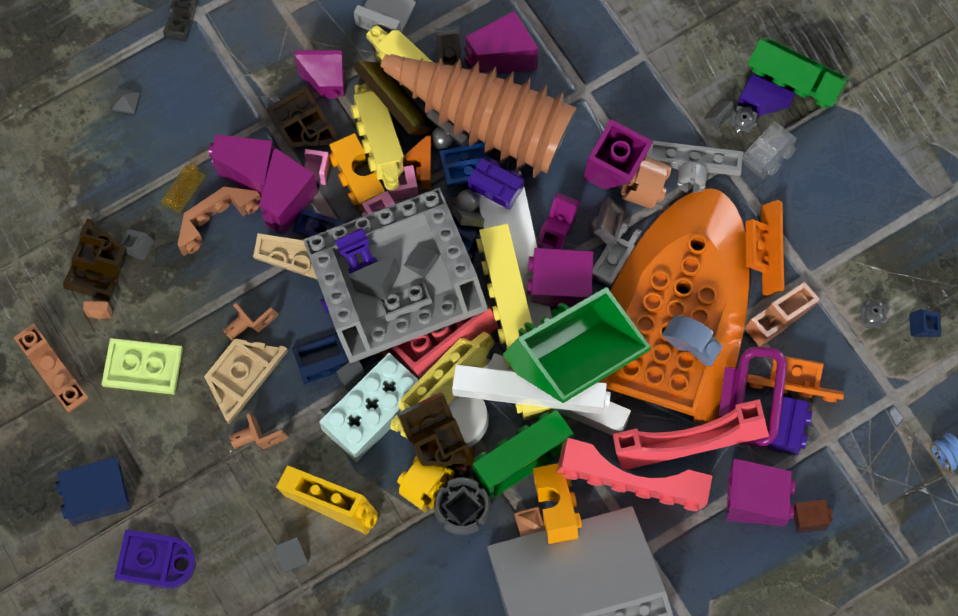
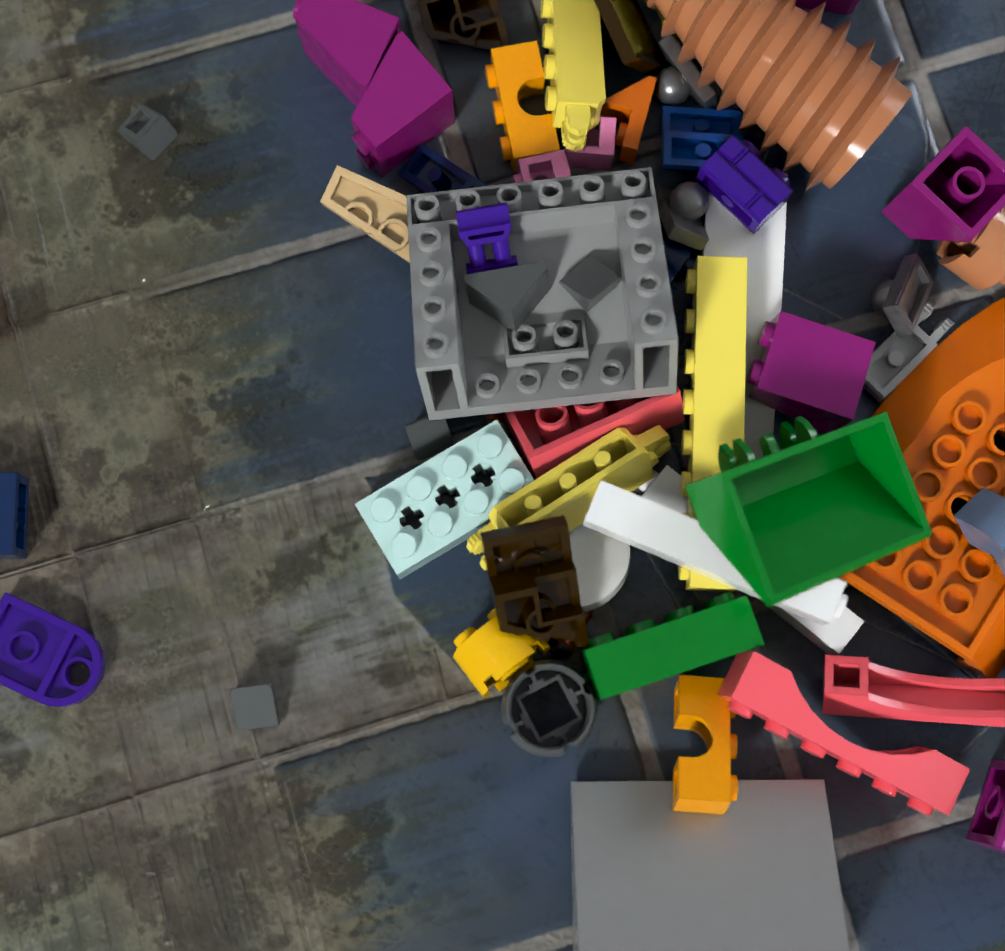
camera: 10 degrees right, 10 degrees up
(95, 263) = (74, 145): dark brown slope -> none
(97, 309) = (56, 221): nougat tile -> none
(142, 366) = (104, 331): yellowish green tile -> none
(183, 188) = (244, 60): clear yellow hinge -> none
(241, 373) = (254, 386): tan wing -> none
(243, 321) = (283, 301): nougat bracket -> none
(244, 200) = (255, 110): nougat slope -> none
(254, 433) = (248, 490): nougat bracket -> none
(319, 164) = (465, 77): bright pink panel -> none
(322, 368) = (385, 413): dark blue tile -> none
(328, 499) = (336, 634): yellow slope -> none
(529, 521) = (649, 757): nougat tile -> none
(559, 222) = (825, 275): magenta brick -> none

